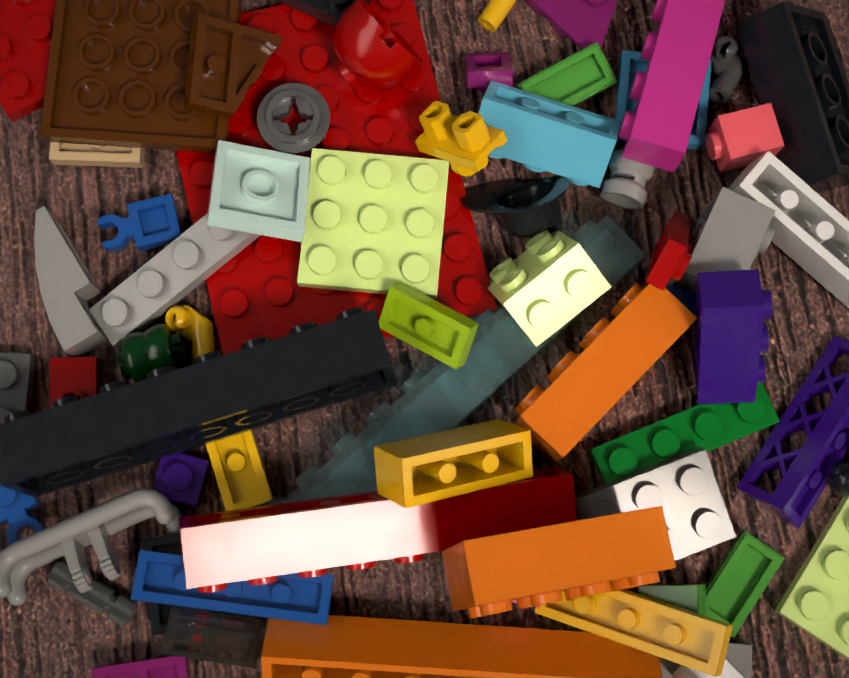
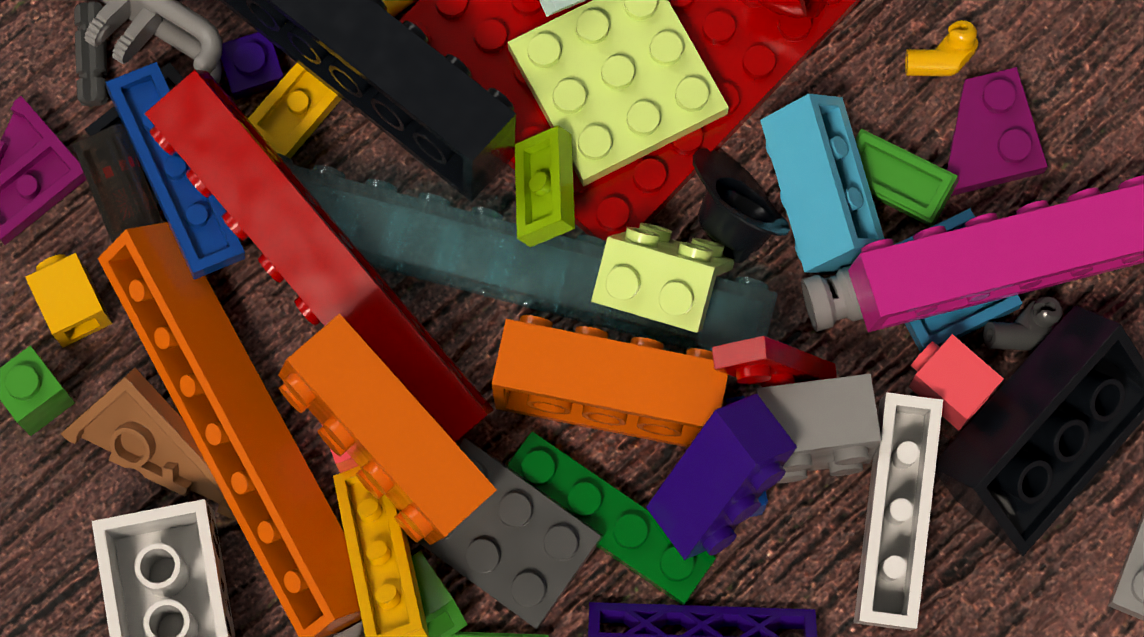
camera: 60 degrees right, 5 degrees down
(453, 462) = (423, 290): yellow brick -> none
(458, 139) = (752, 98): yellow hips -> none
(484, 67) = (859, 90): magenta plate -> none

